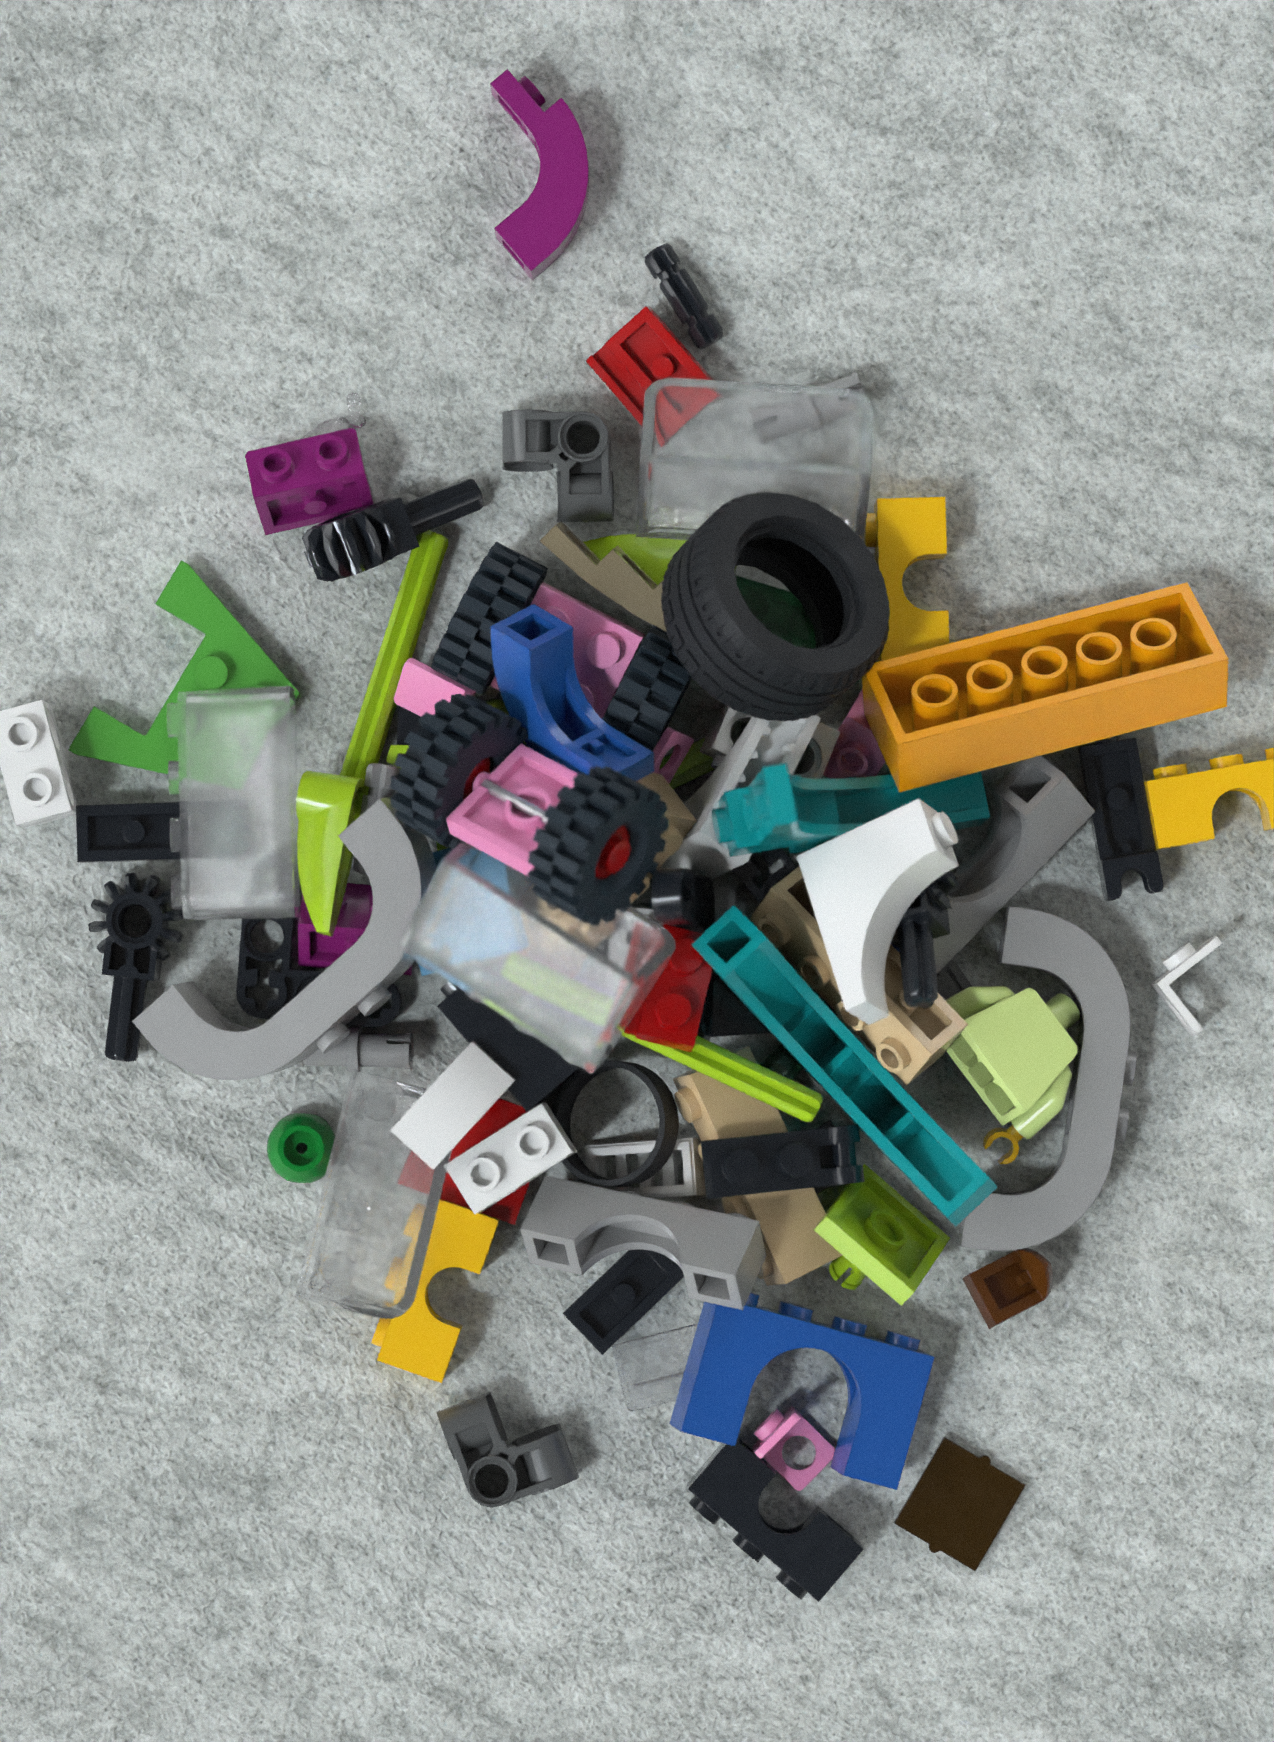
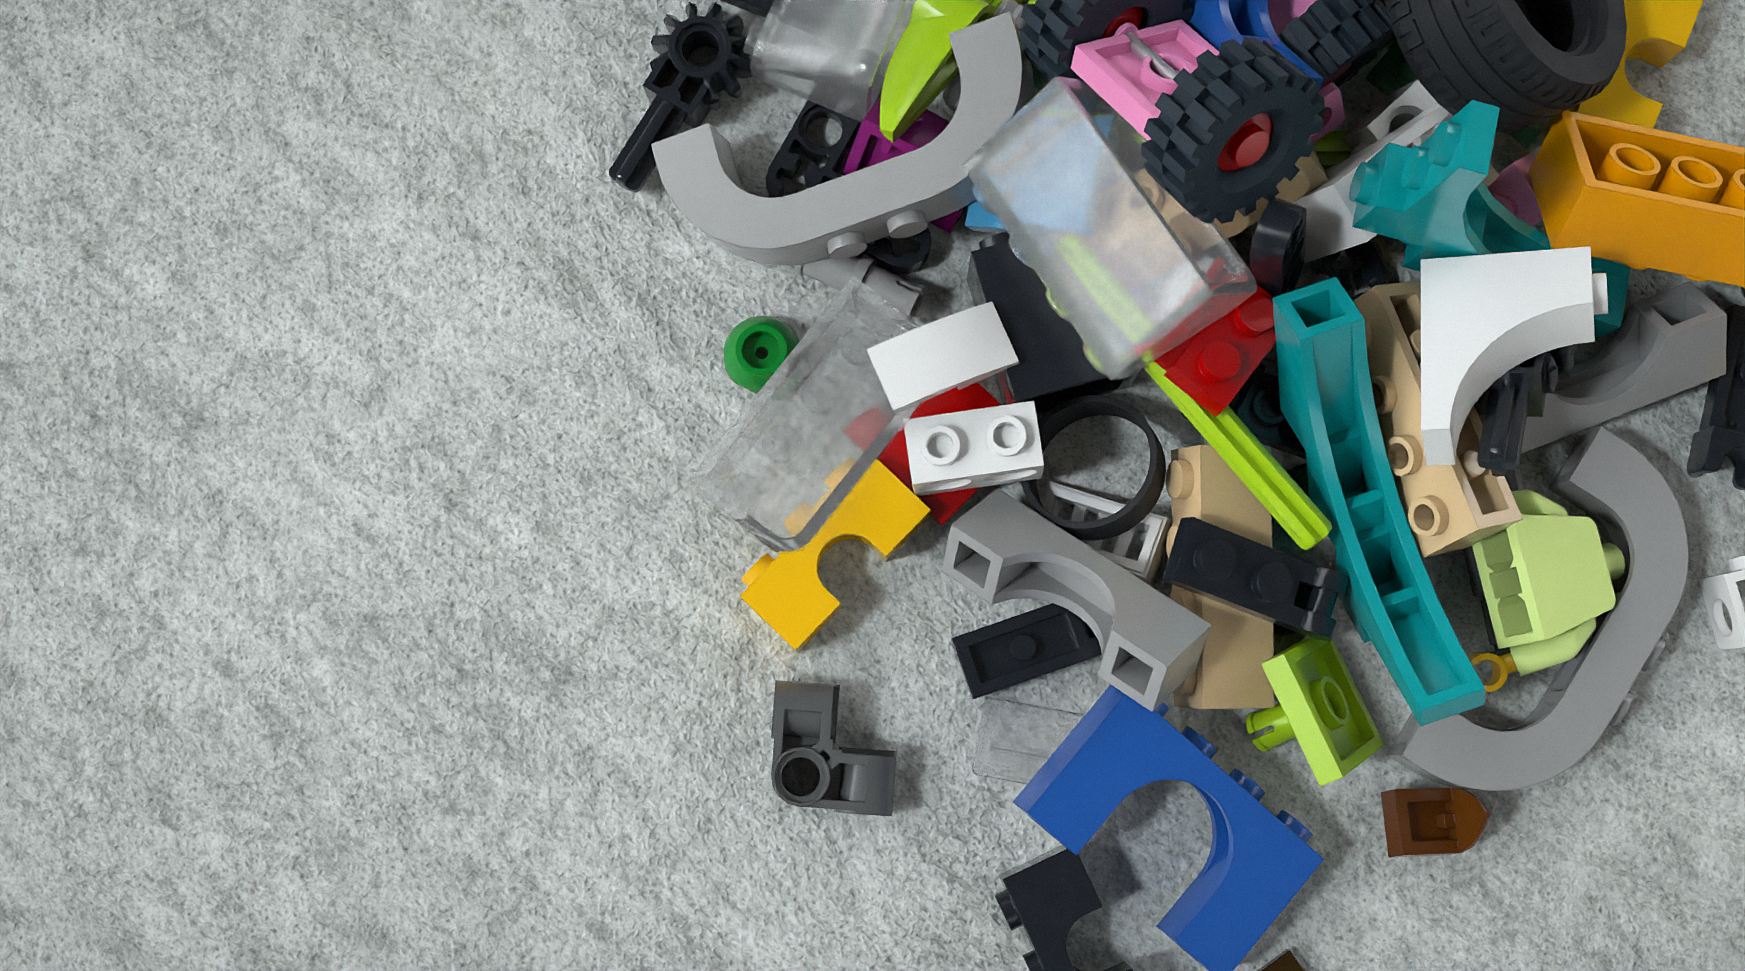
camera: 25 degrees right, 5 degrees down
(776, 1431) = (1123, 861): bright pink bracket -> none

